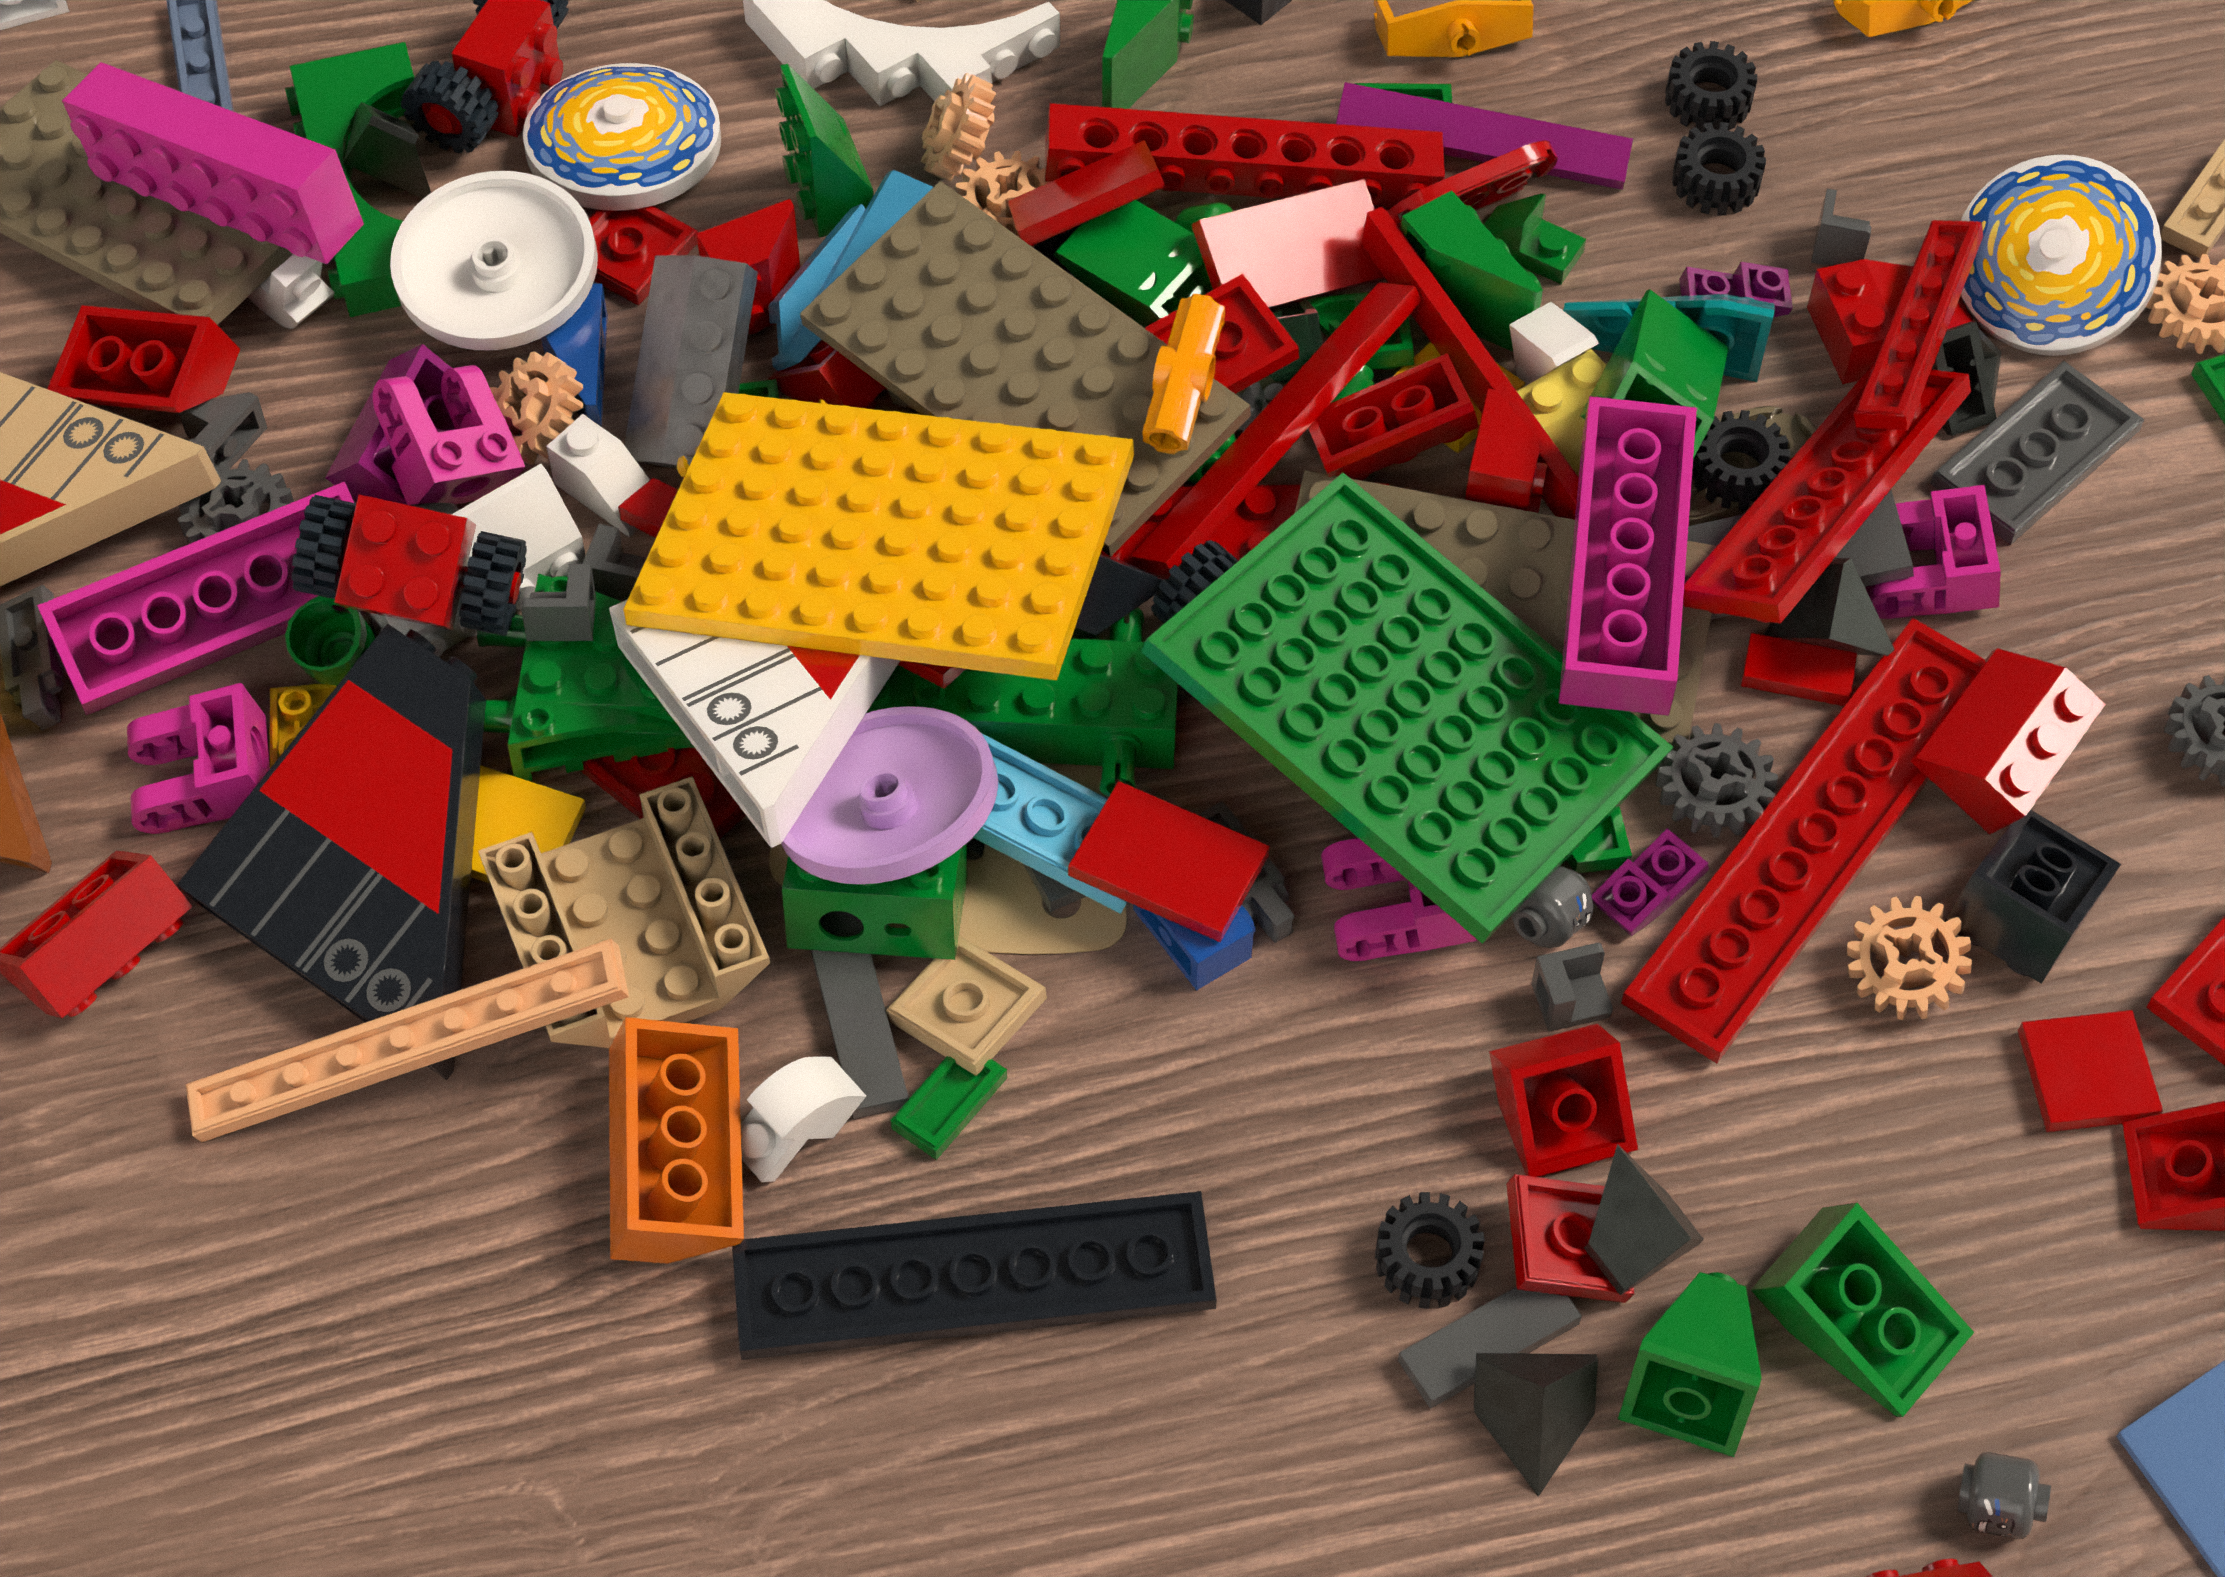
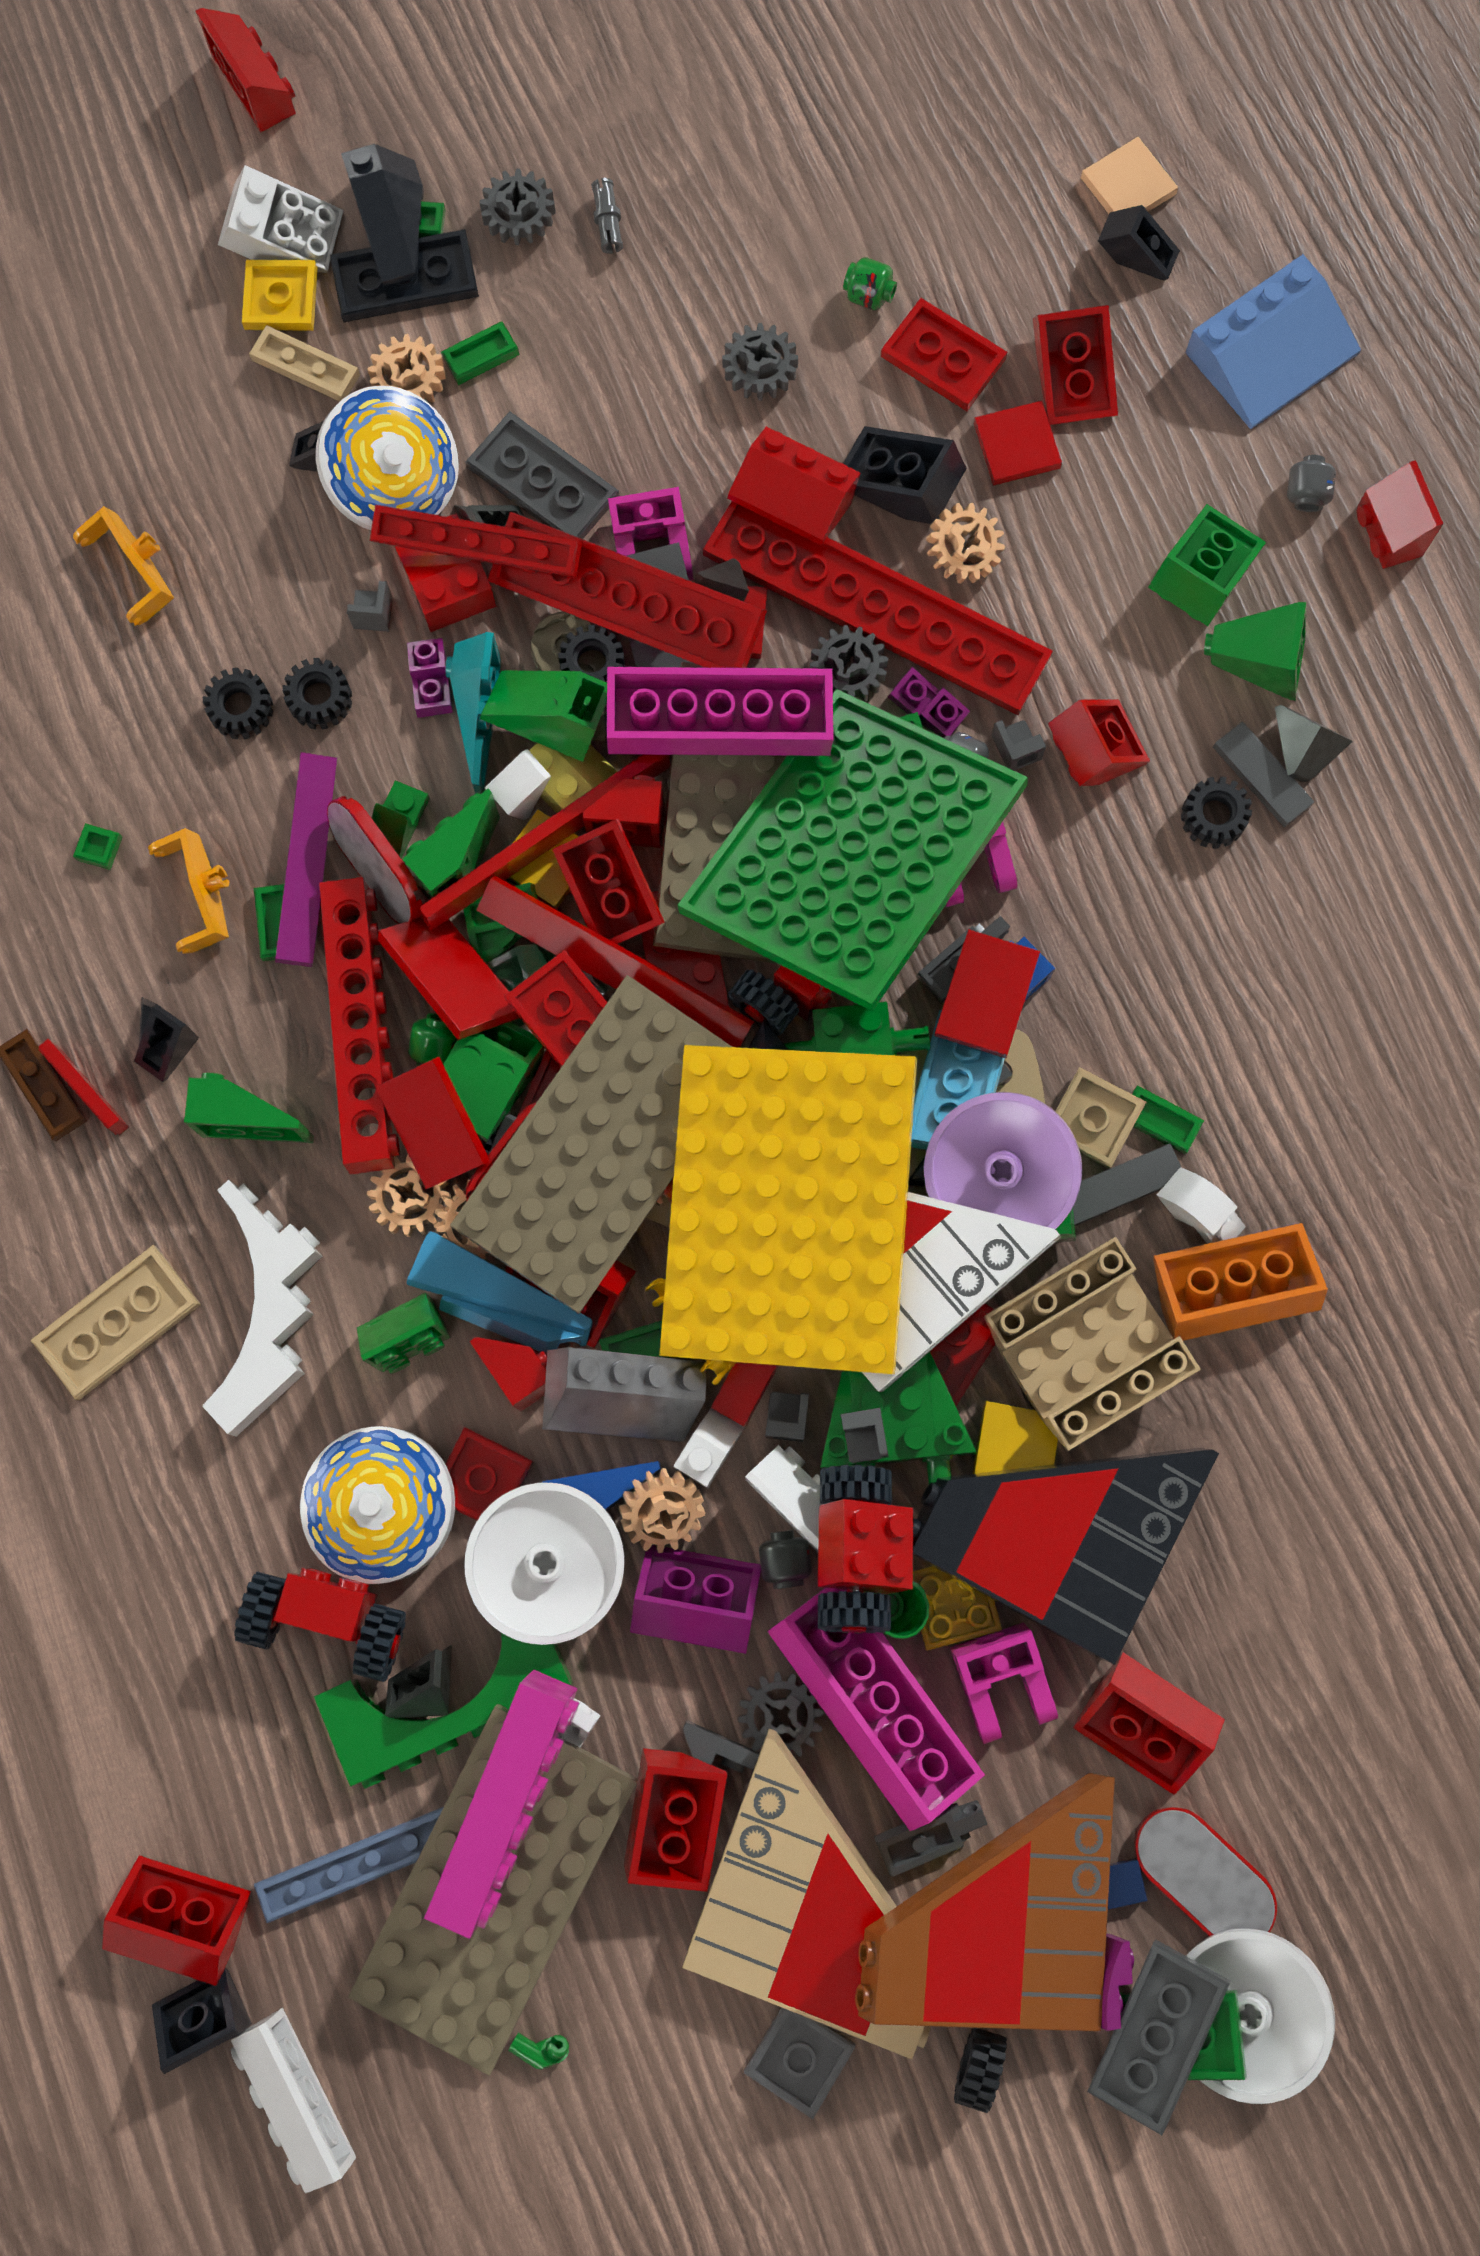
camera: 95 degrees left, 20 degrees up
(406, 1040) = (1213, 1468): light nougat tile -> none
(454, 463) = (726, 1541): dark pink brick -> none
(958, 127) = (355, 1238): light nougat gear -> none
(972, 1275) = (1286, 1083): black plate -> none
(1183, 374) = (622, 1016): light orange piece -> none
(1549, 1233) = (1195, 730): red tile -> none
(1637, 1226) = (1190, 683): pearl dark grey slope -> none

